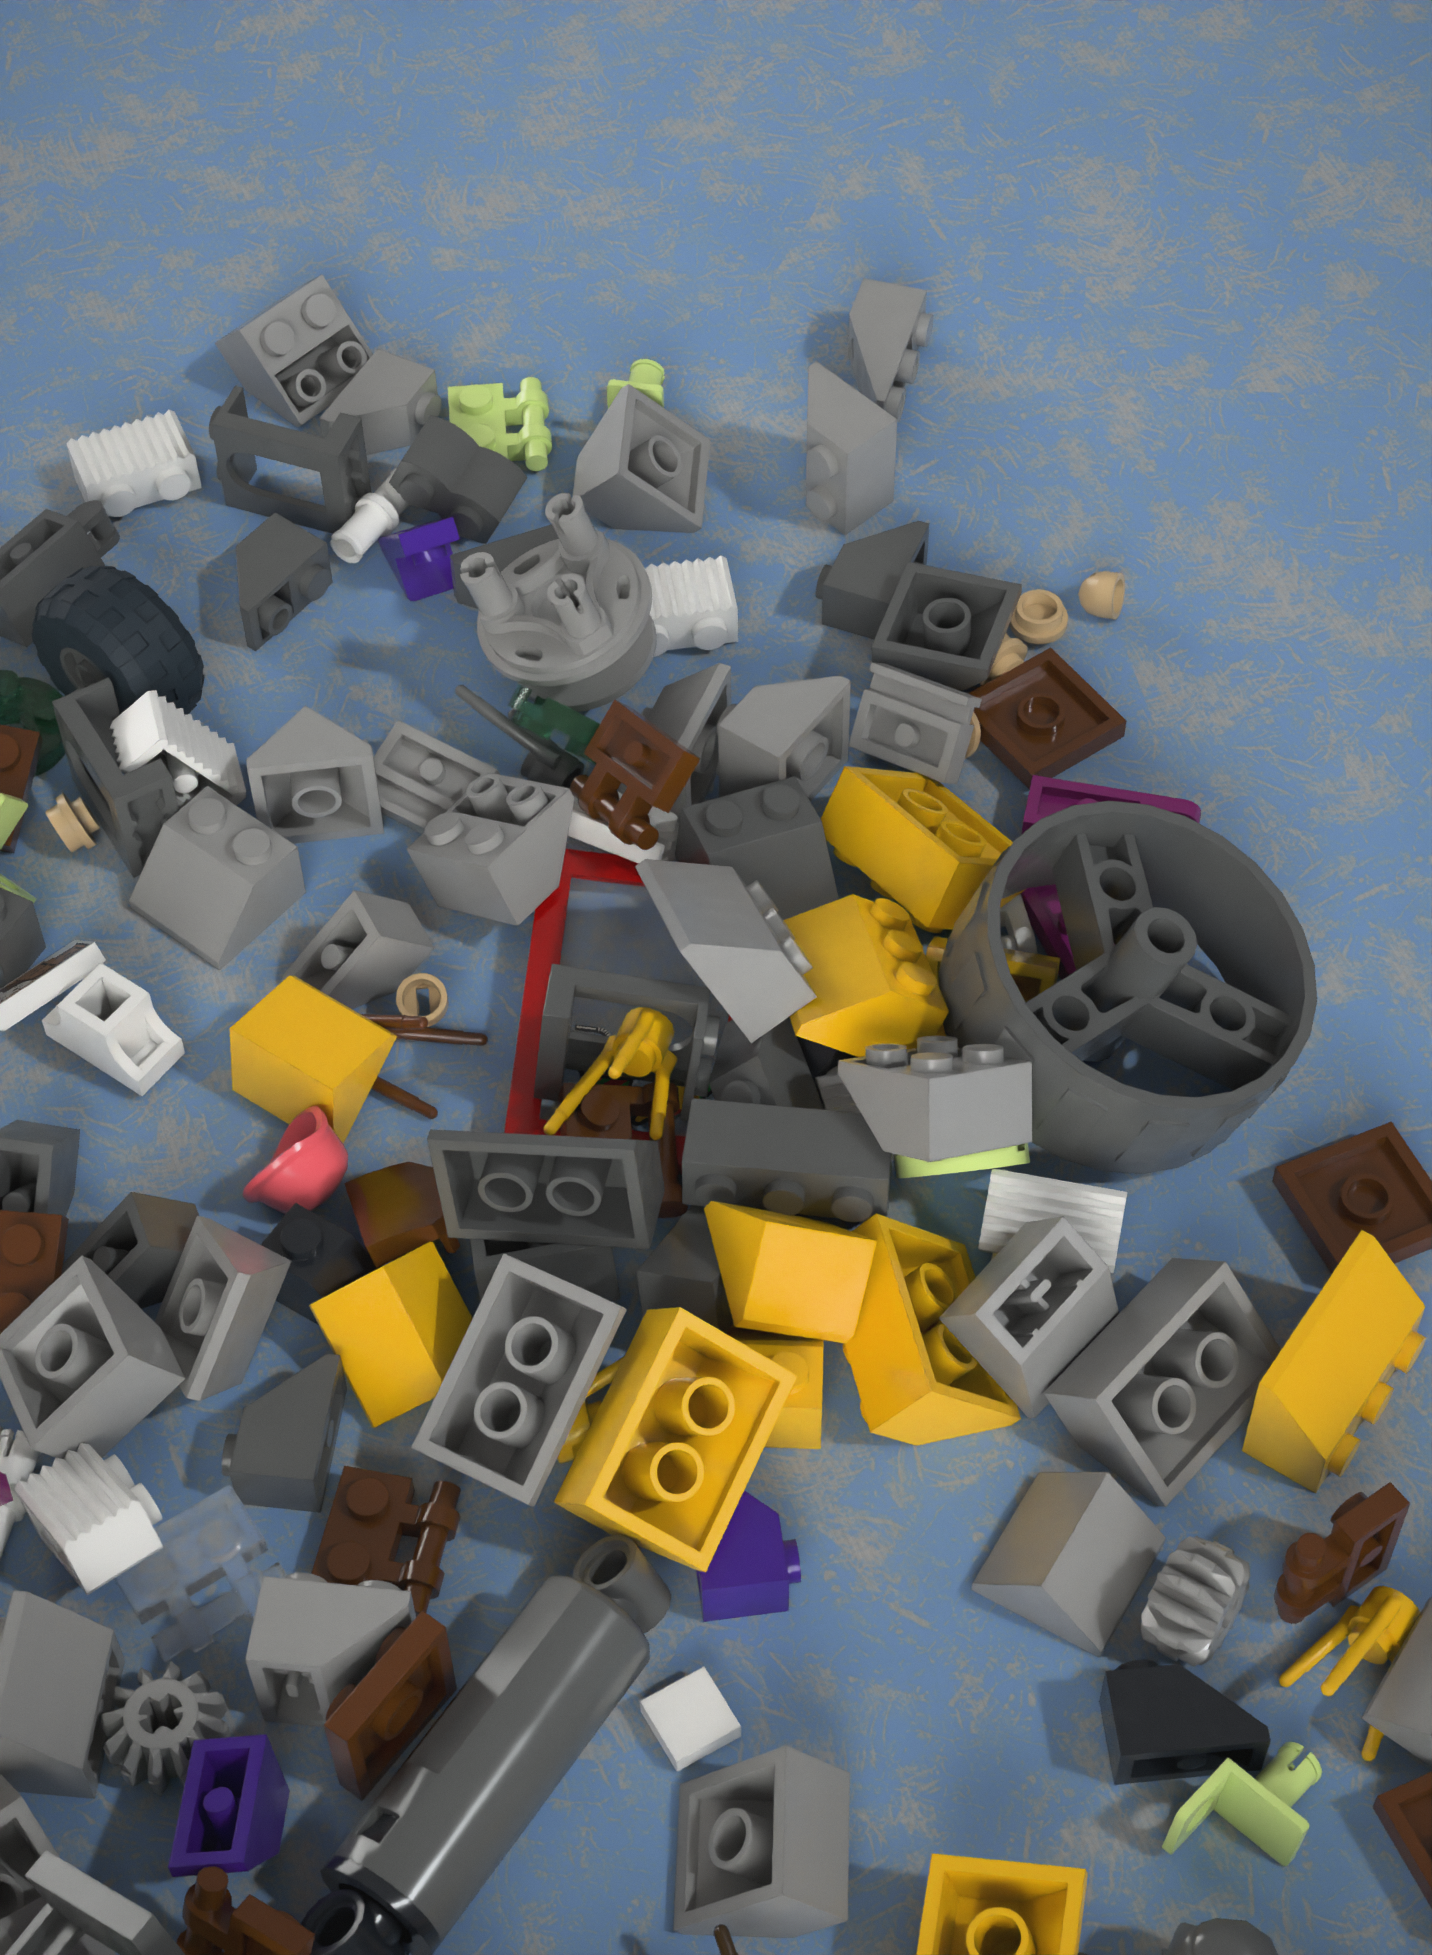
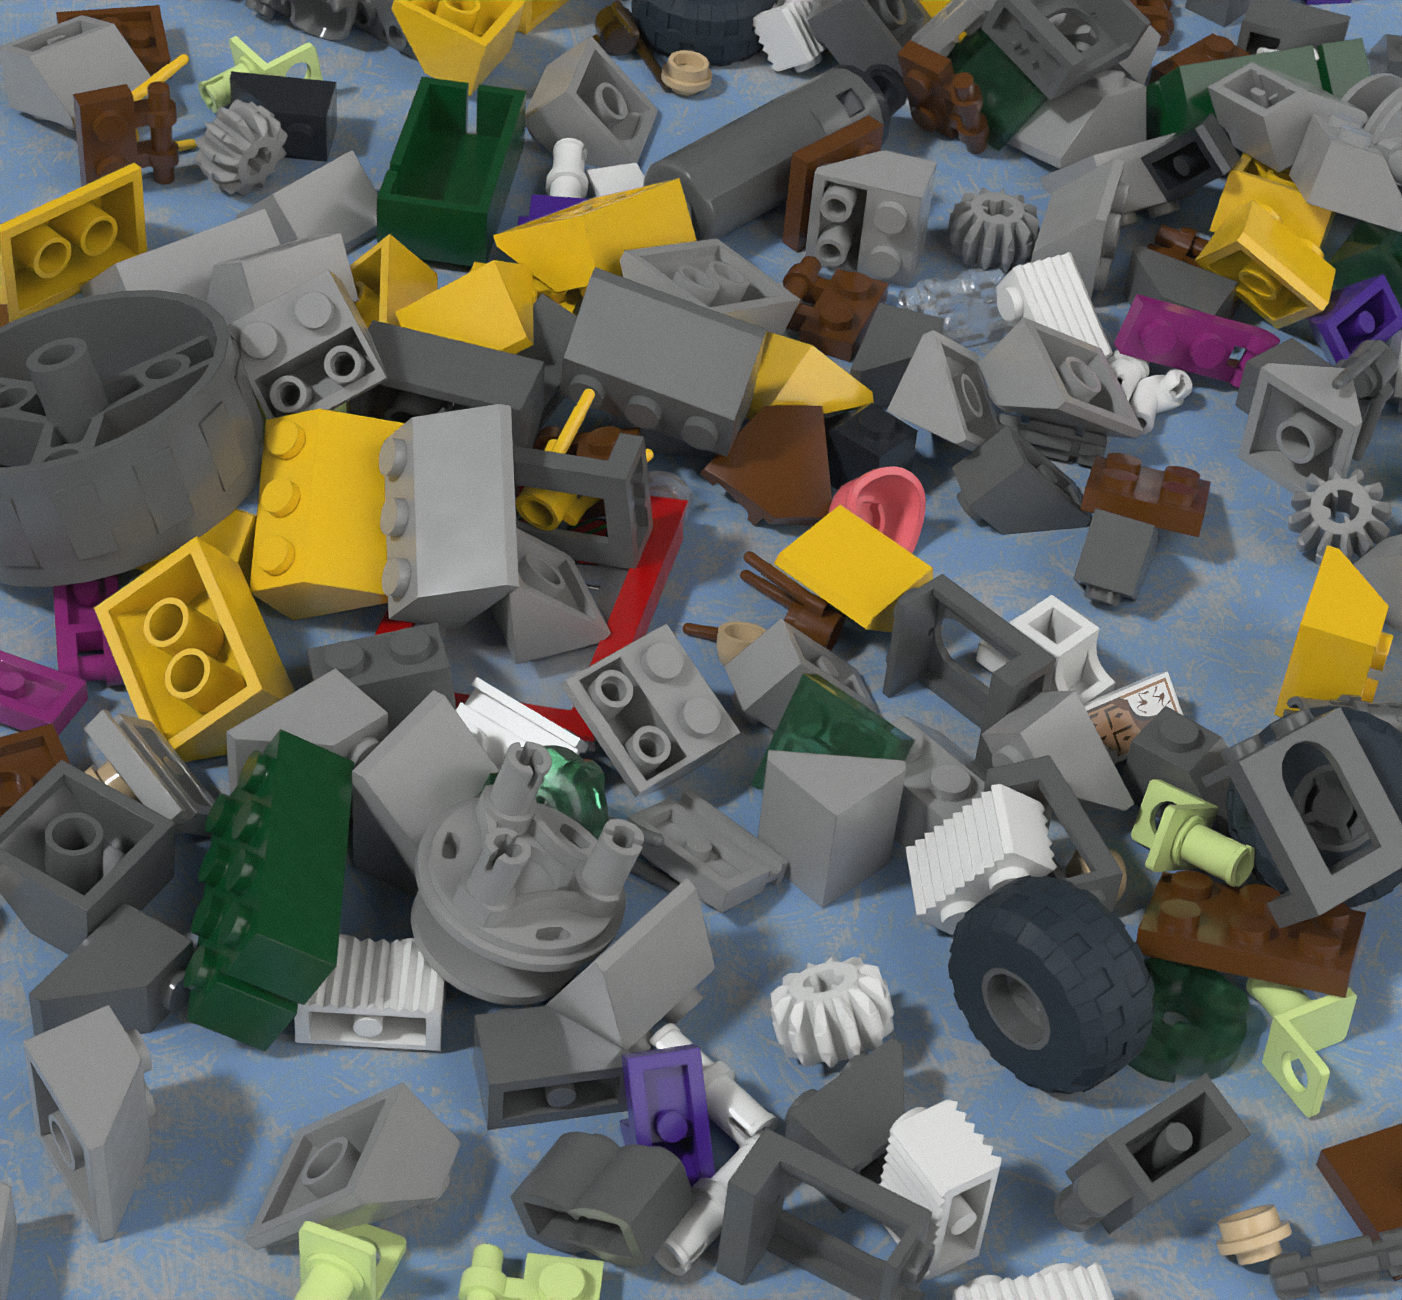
camera: 175 degrees left, 10 degrees down
(106, 873) = (1061, 728): none -> light grey slope
(150, 942) = (920, 655): none -> dark grey panel
(206, 507) = (947, 1170): none -> white brick
(230, 1806) = (955, 144): dark purple slope -> none
(300, 643) = (832, 1011): none -> white gear
(327, 846) = (833, 723): none -> clear green wing
(393, 593) = (727, 1102): none -> white pin
(443, 626) = (644, 974): none -> light grey slope
(626, 939) = (550, 607): none -> light grey slope
(644, 760) = (487, 690): reddish brown plate -> none
(758, 1683) = (568, 174): none -> white pin
(765, 592) = (271, 891): none -> dark green piece
(909, 1625) = (447, 184): none -> dark green piece

